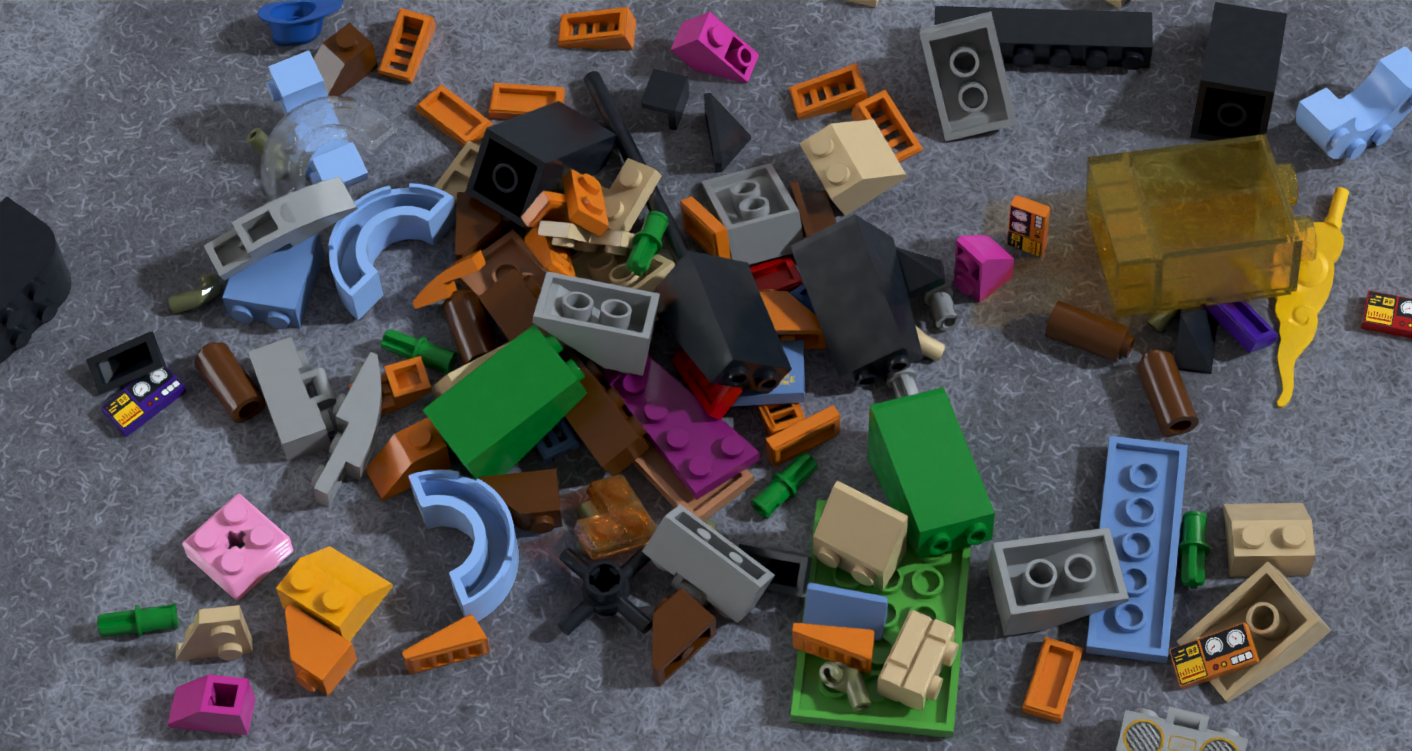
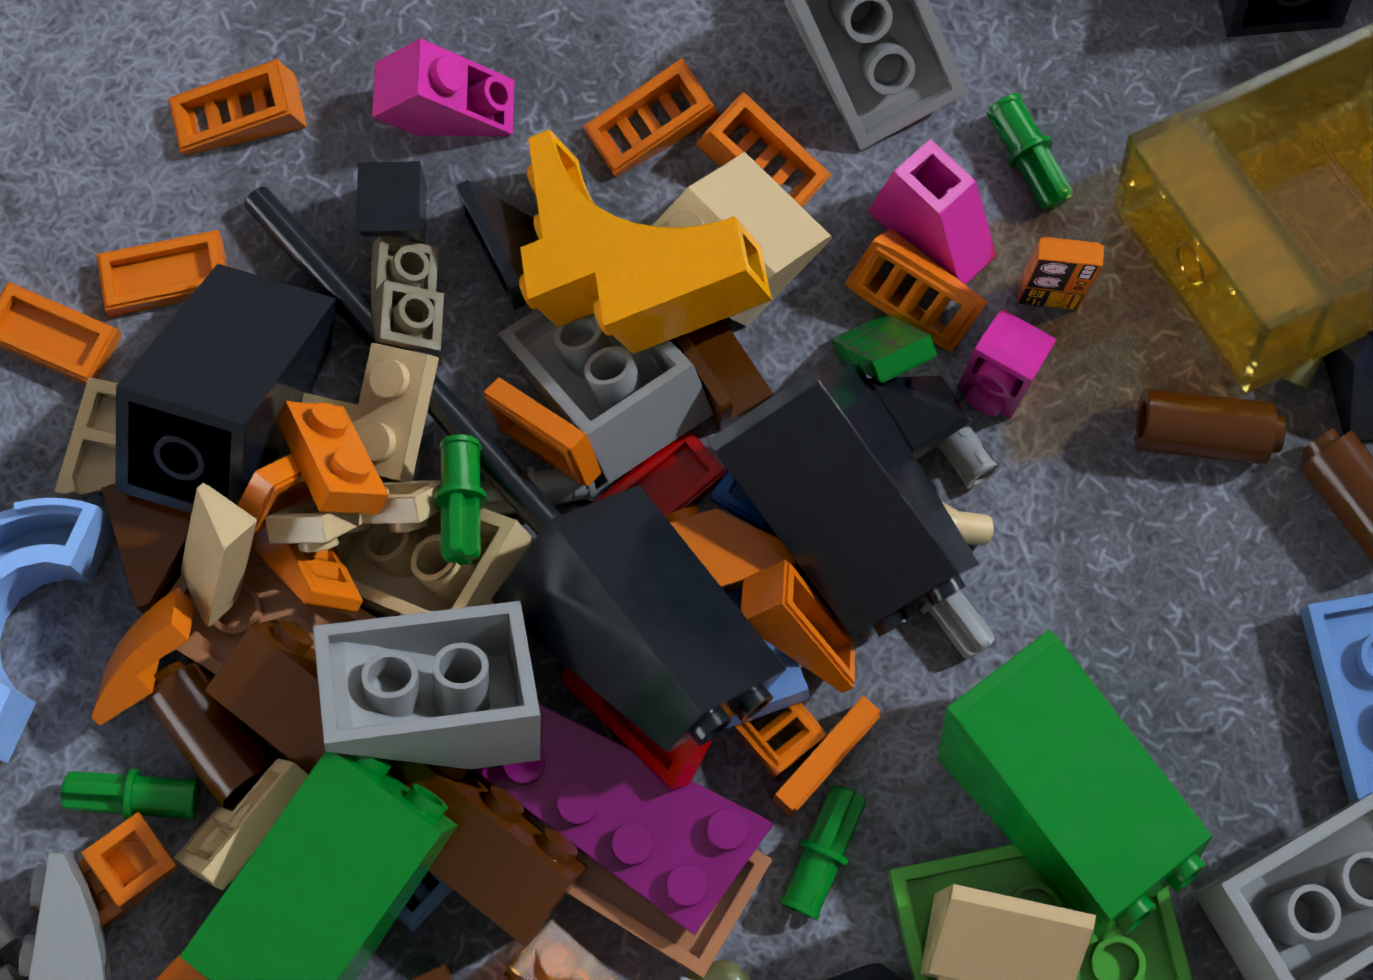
camera: 25 degrees left, 15 degrees up
(508, 234) = (216, 553): none -> tan slope
(657, 142) = (404, 295): none -> dark tan slope
(781, 158) = (633, 276): none -> light orange arch
(811, 360) = (799, 624): none -> orange slope
(914, 237) = (884, 347): none -> green tile
(928, 202) = (886, 297): none -> orange slope
(972, 181) = (937, 211): none -> dark pink slope
(1043, 165) = (1030, 151): none -> green axle

